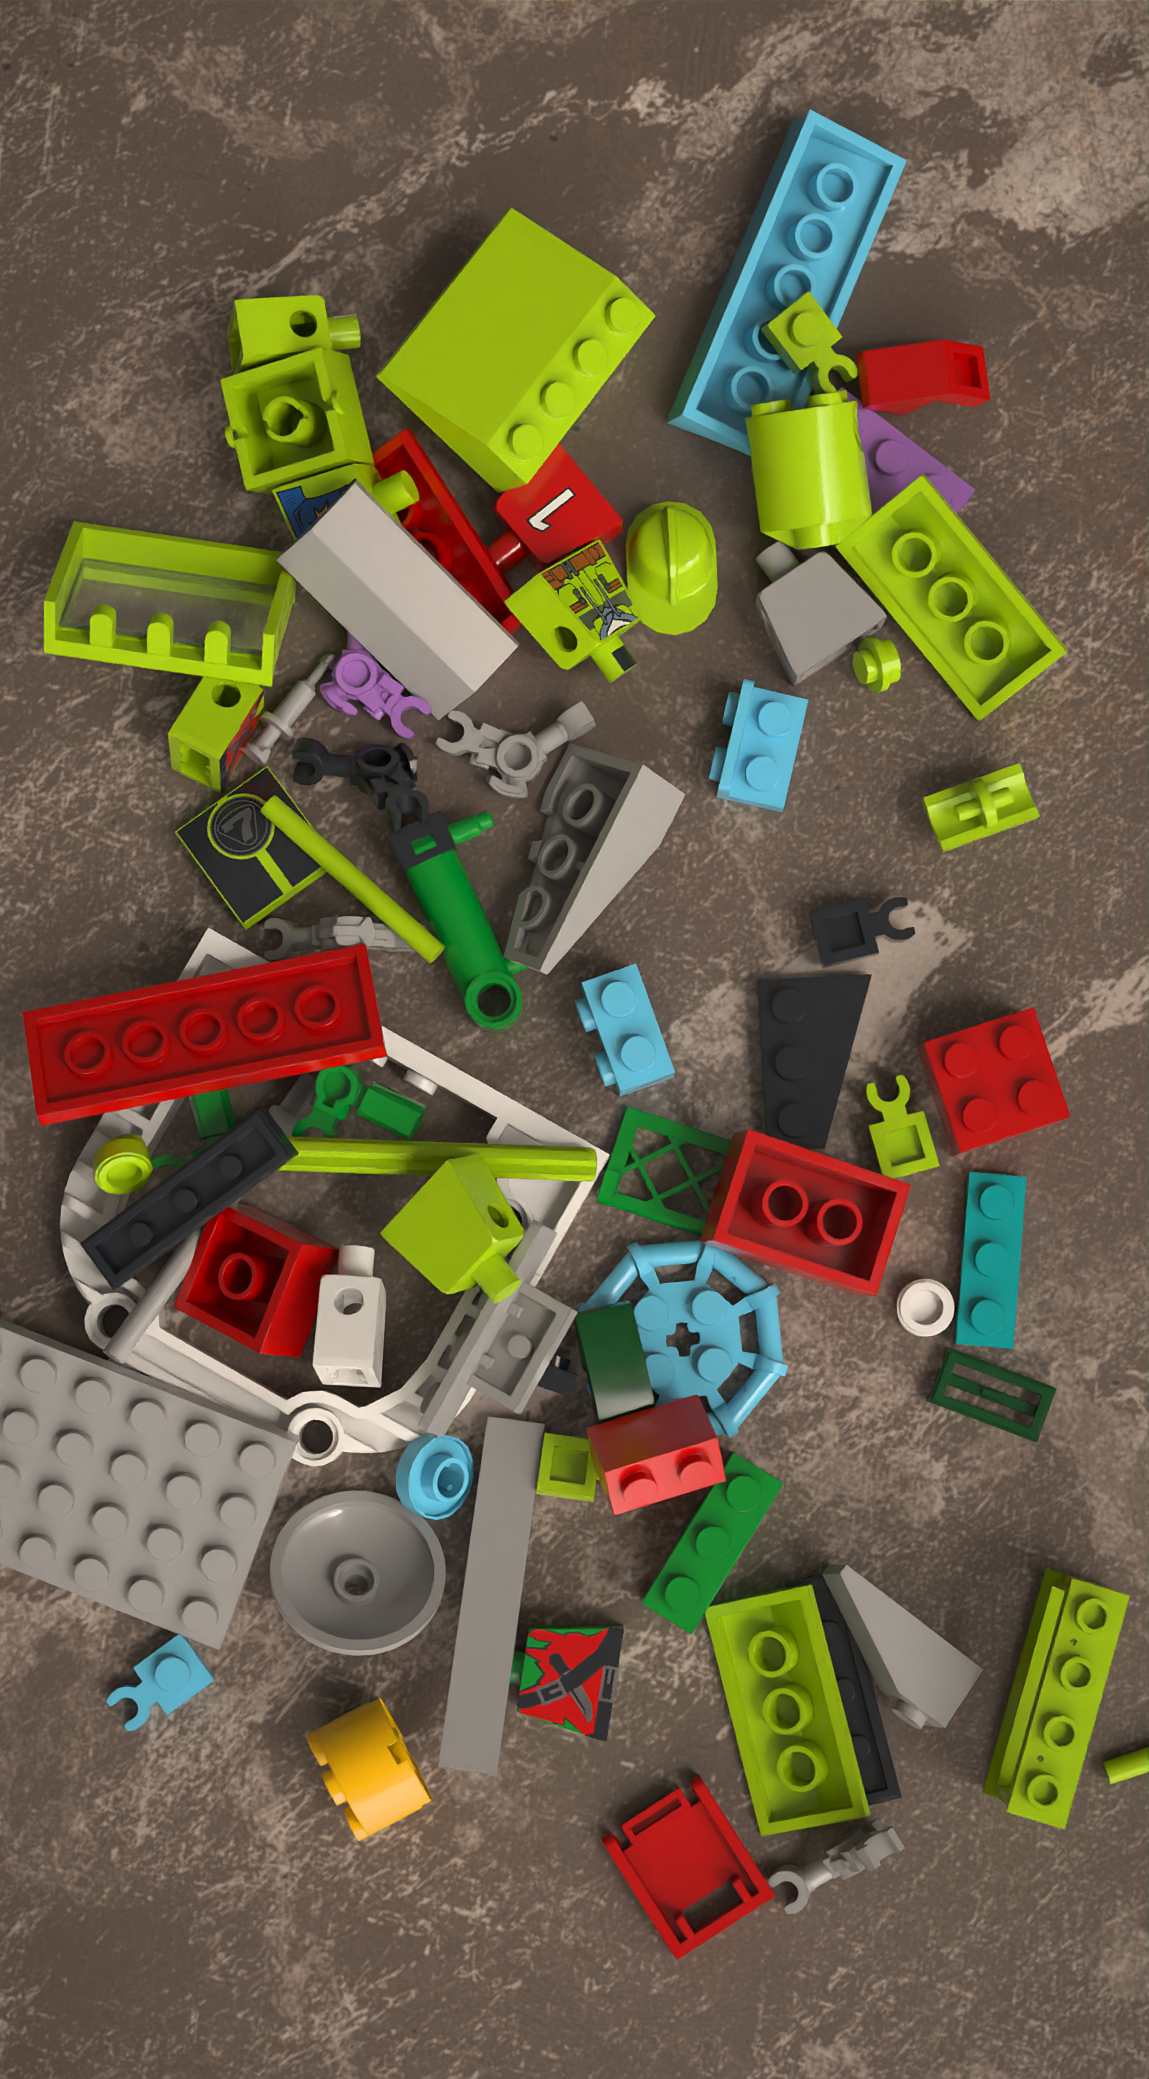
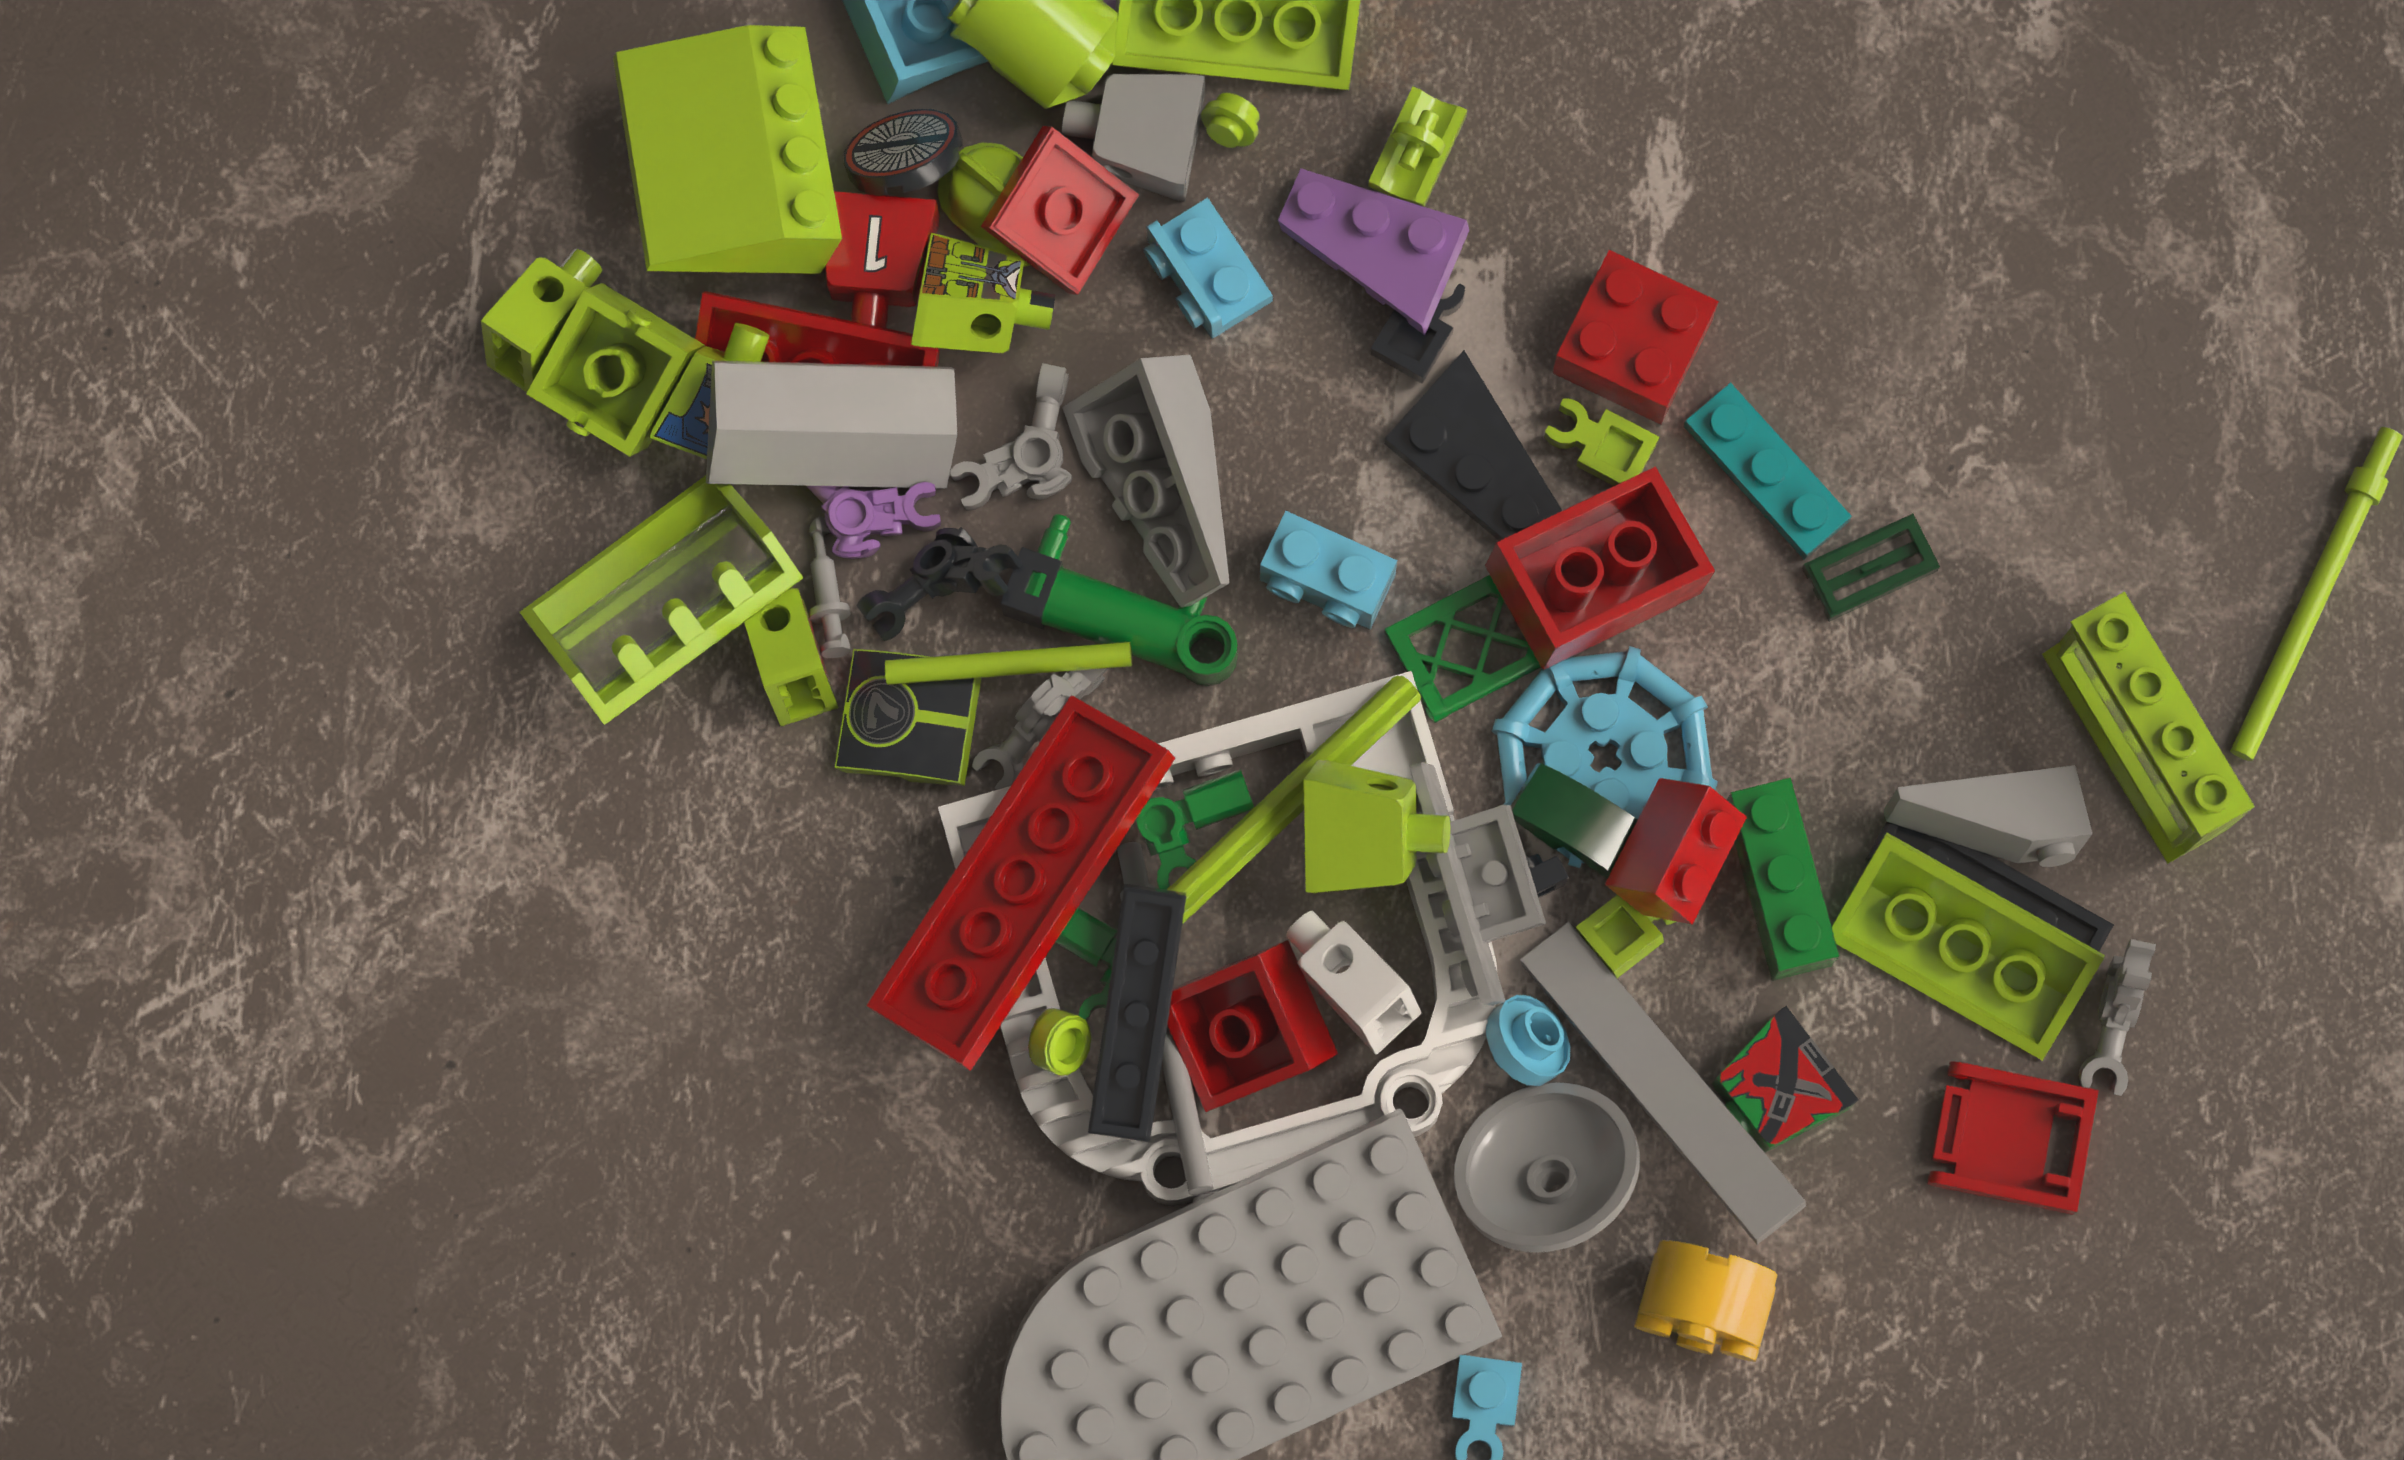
camera: 40 degrees left, 5 degrees down
(636, 465) = (903, 150): none -> tile
(699, 609) = (1059, 210): none -> tile
(889, 845) = (1380, 241): none -> medium lavender wing
(924, 1307) = (1756, 554): white tile -> none

